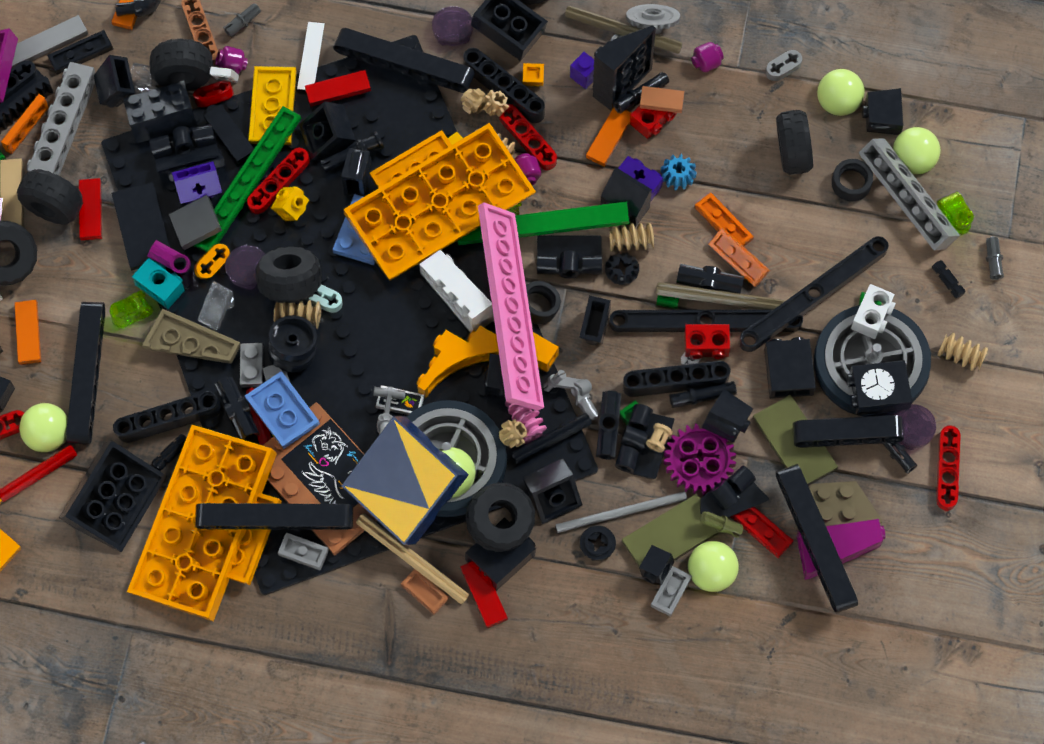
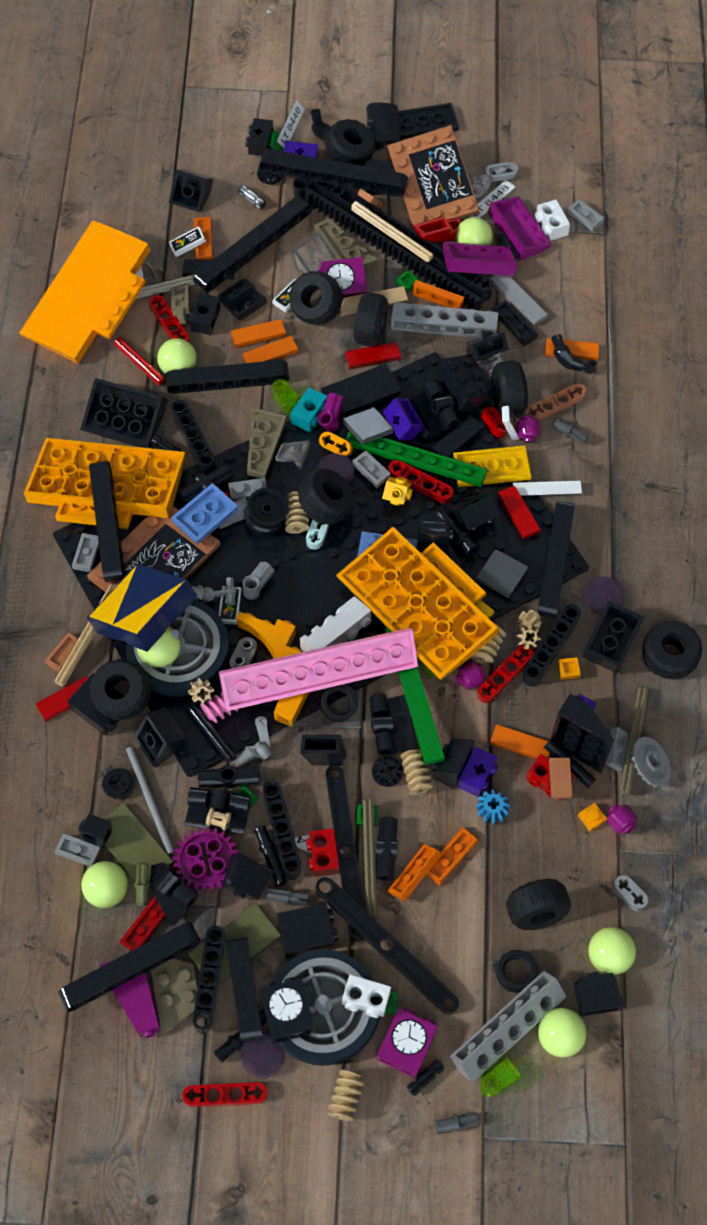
camera: 80 degrees right, 5 degrees down
(59, 321) = (272, 351): none -> orange tile
(253, 228) = (371, 469): none -> light grey plate
(374, 366) = (257, 579): none -> light grey piece
(410, 117) = (502, 573): none -> dark grey tile
(465, 392) = (243, 653): none -> light grey plate
(699, 84) = (592, 817): none -> light orange plate
(750, 382) = (287, 897): none -> dark grey axle
(845, 462) = (205, 989): none -> black beam
(915, 288) = (407, 1042): none -> magenta brick

